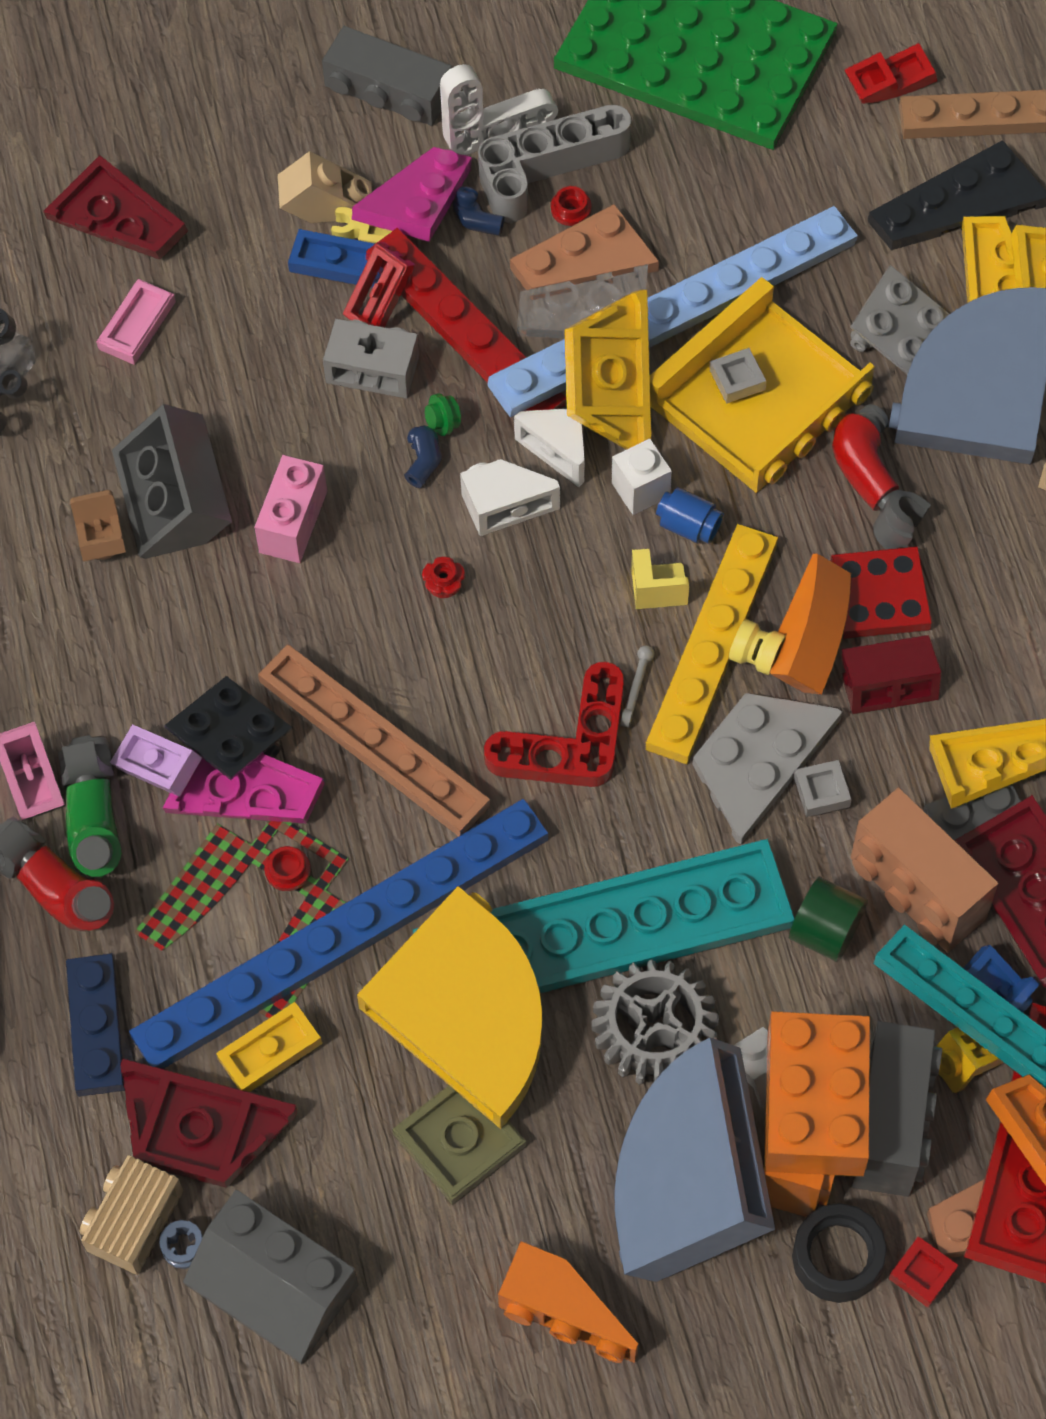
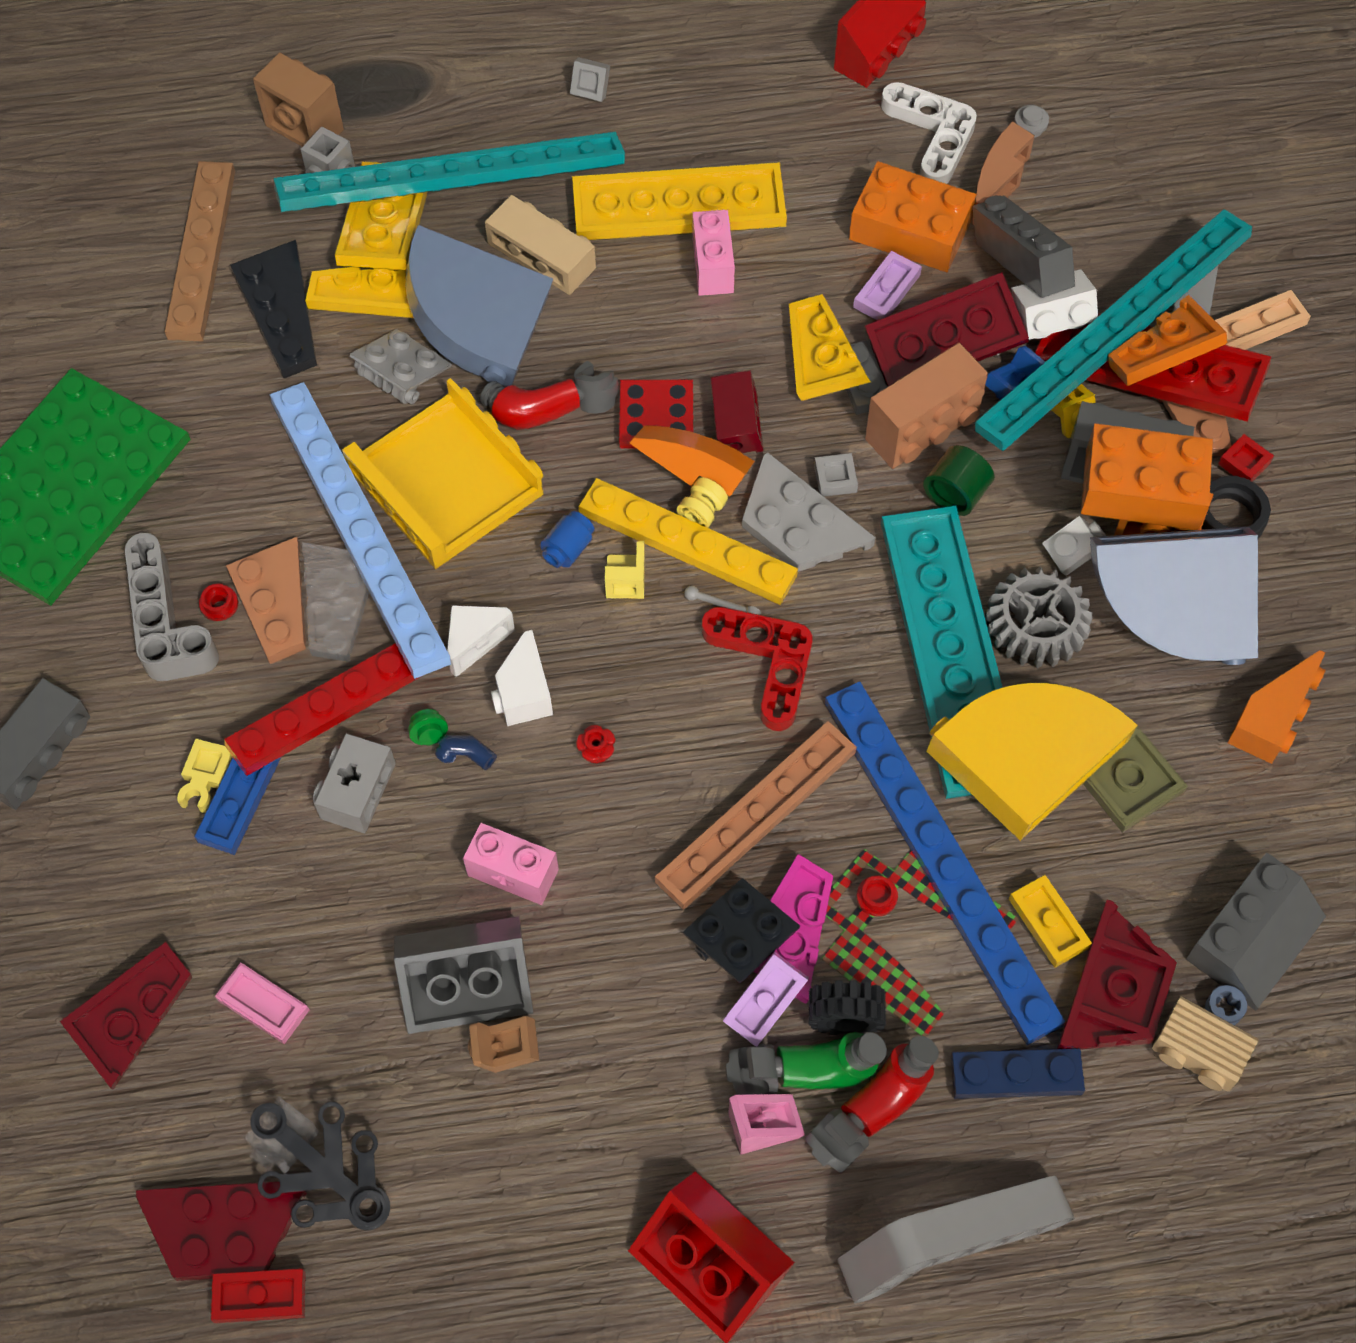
camera: 85 degrees left, 0 degrees up
(145, 836) = (847, 1007): none -> black tyre
(317, 186) = (153, 812): tan slope -> none
(395, 270) = (267, 741): red tile -> none
(417, 195) = (182, 725): dark pink wing -> none
(472, 216) = (209, 687): dark blue arm -> none
(480, 122) = (106, 651): white beam -> none
(611, 371) = (423, 569): yellow wing -> none
(641, 476) = (524, 570): white brick -> none
(737, 375) = (433, 485): light grey plate -> none
(892, 77) = (136, 336): red slope -> none

